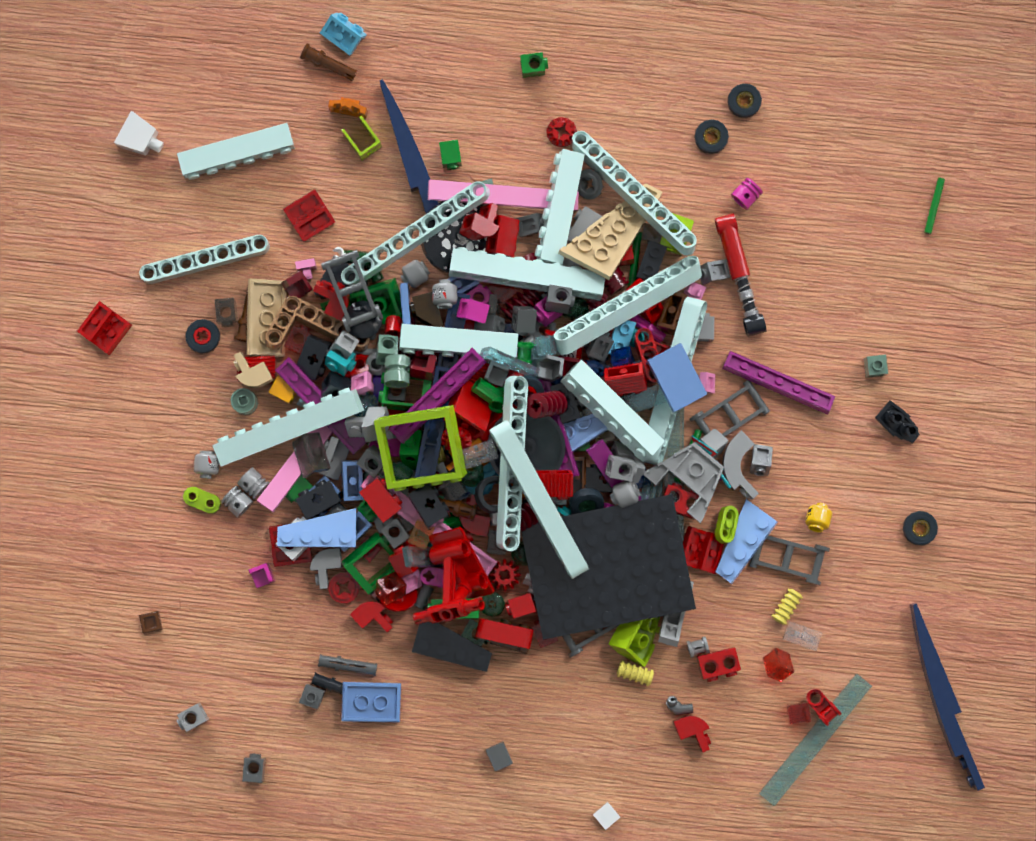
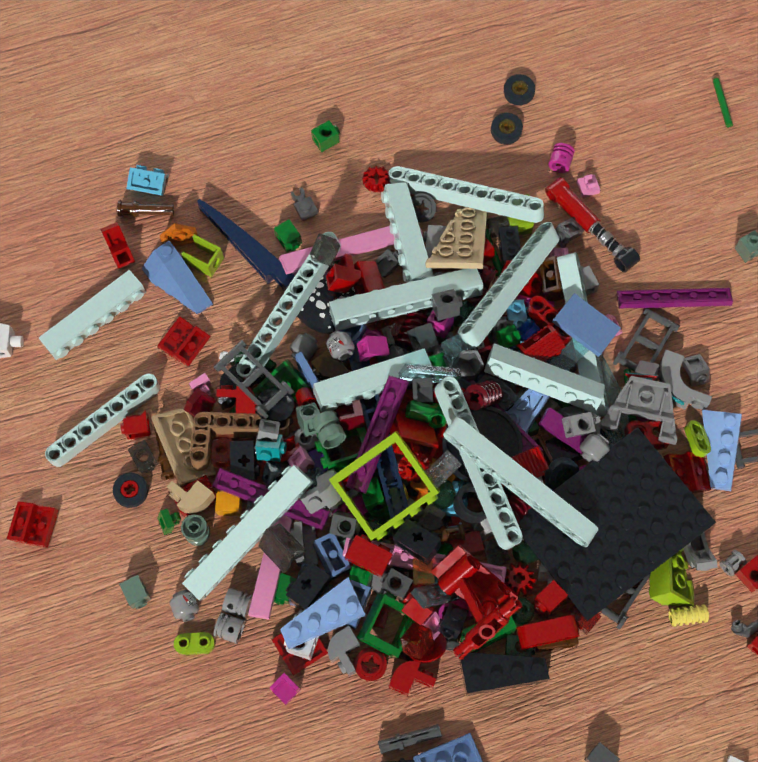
camera: 20 degrees left, 15 degrees down
(169, 432) = (135, 592): none -> sand green brick
(224, 381) = (168, 521): none -> green tile
(231, 279) = (136, 426): none -> red window
(287, 91) = (117, 245): none -> red brick
(326, 145) = (169, 272): none -> medium blue wedge
(428, 586) = (453, 621): none -> black bracket
(469, 201) = (325, 249): none -> clear smoke panel
(480, 130) = (304, 206): none -> flat silver plate
(600, 354) = (508, 336): none -> green tile
(758, 233) = (588, 185): none -> bright pink tile

